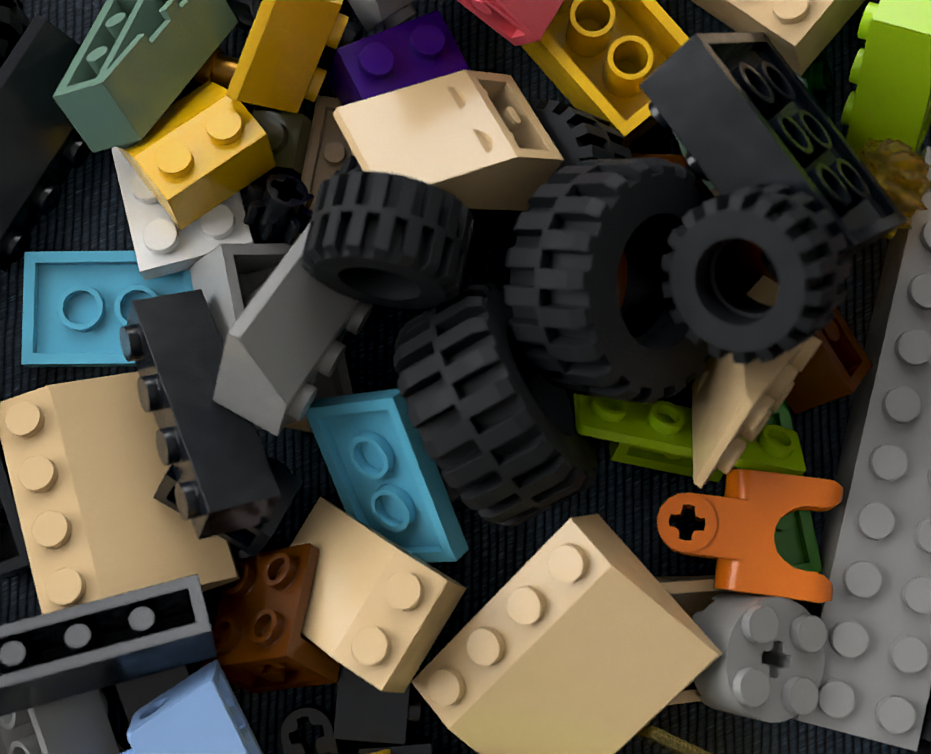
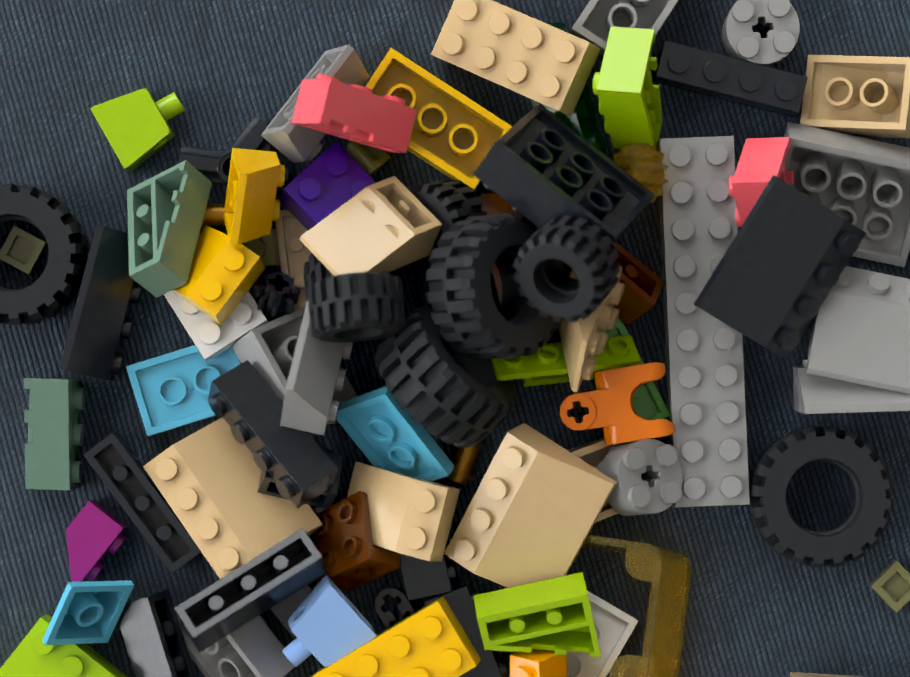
camera: 20 degrees left, 5 degrees up
(479, 47) = (367, 157): none -> olive plate
(484, 550) = (464, 462): none -> pearl gold pin

